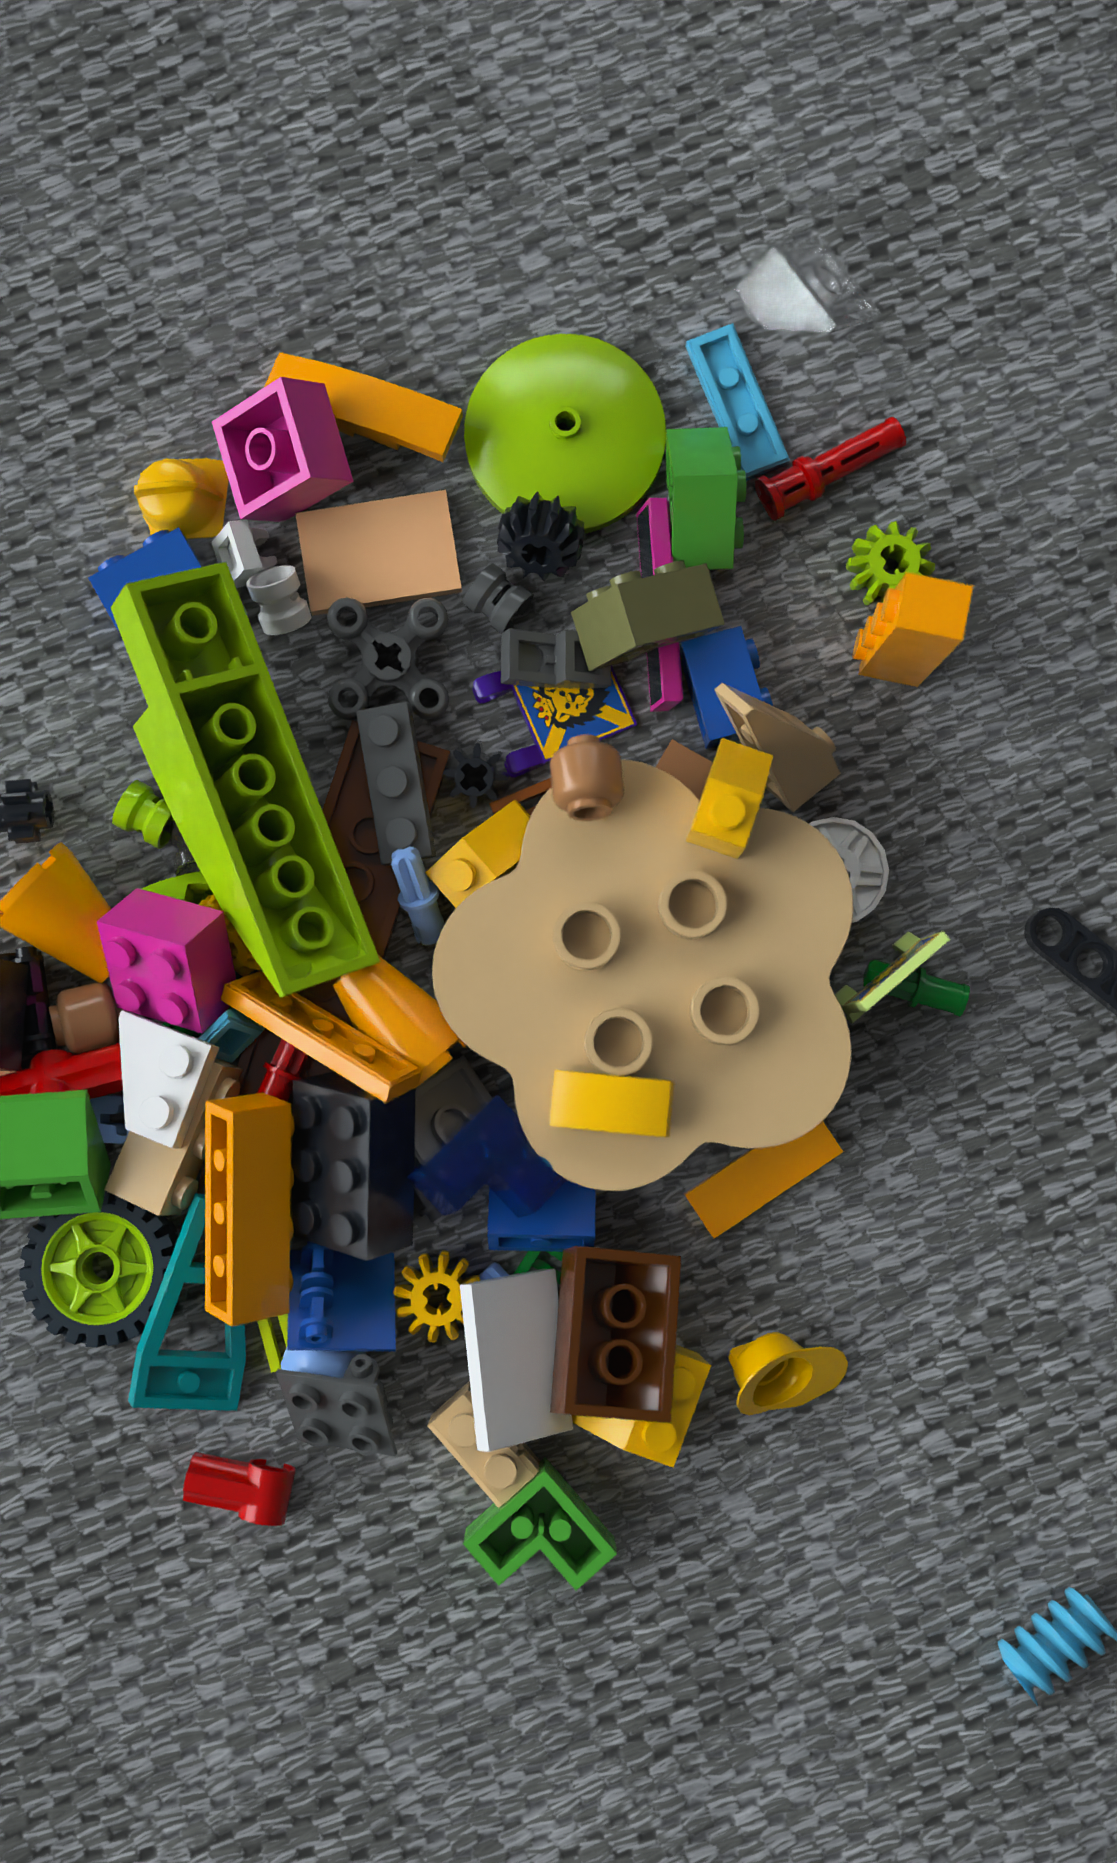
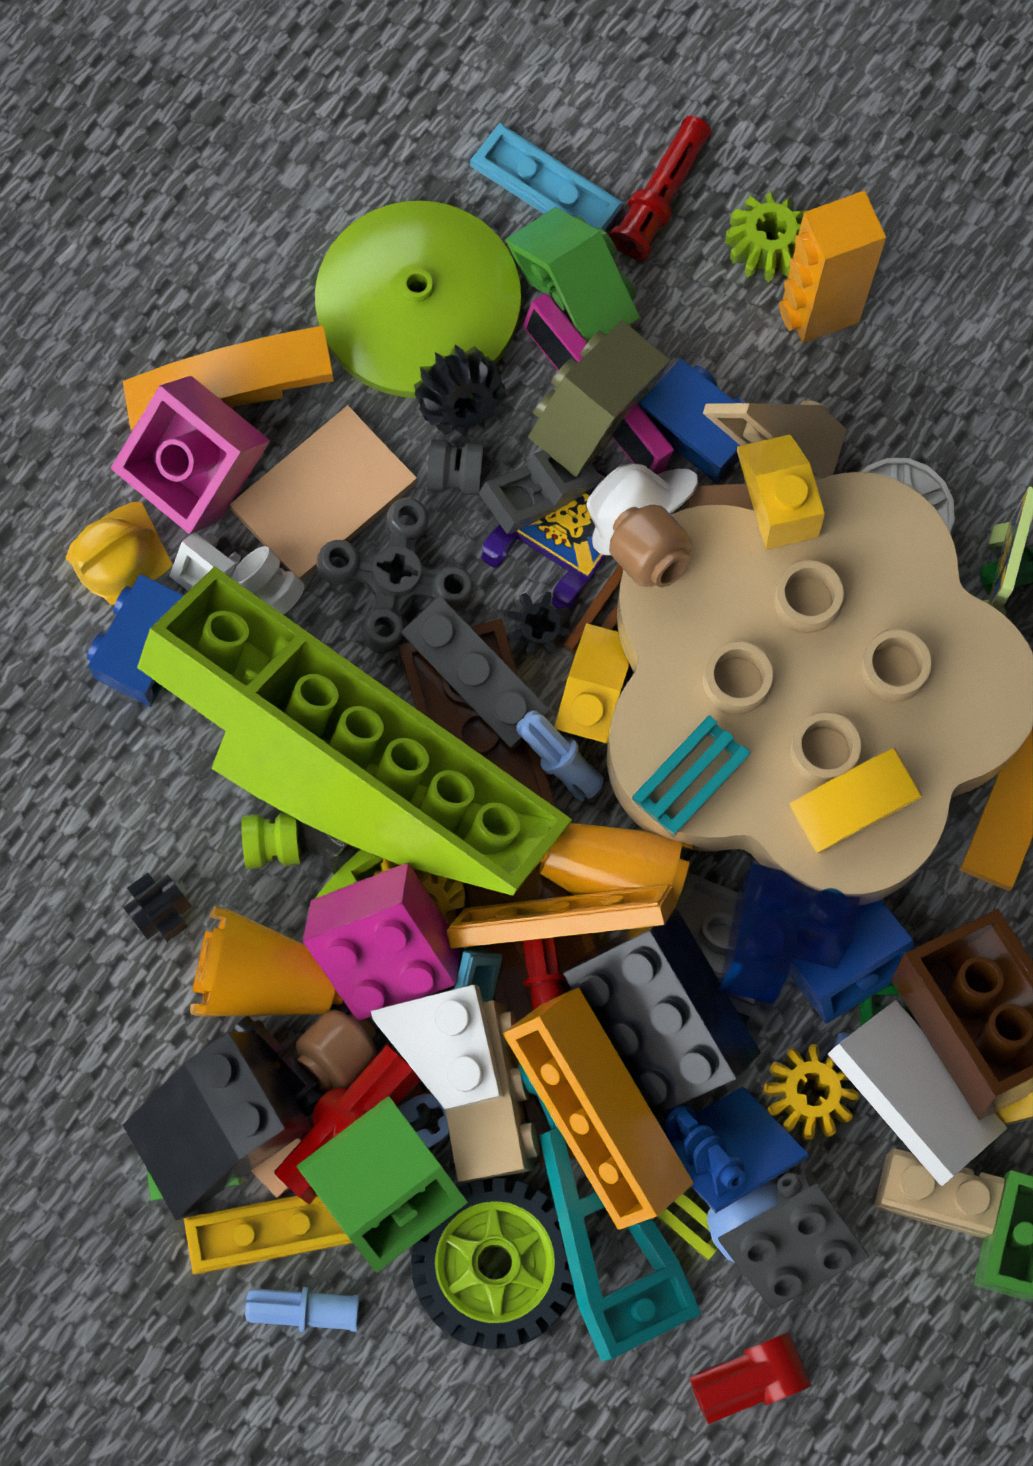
camera: 30 degrees left, 10 degrees down
(446, 1004) = (723, 740): none -> teal tile
(626, 722) = (635, 487): none -> white piece
(804, 290) = (543, 60): clear slope -> none

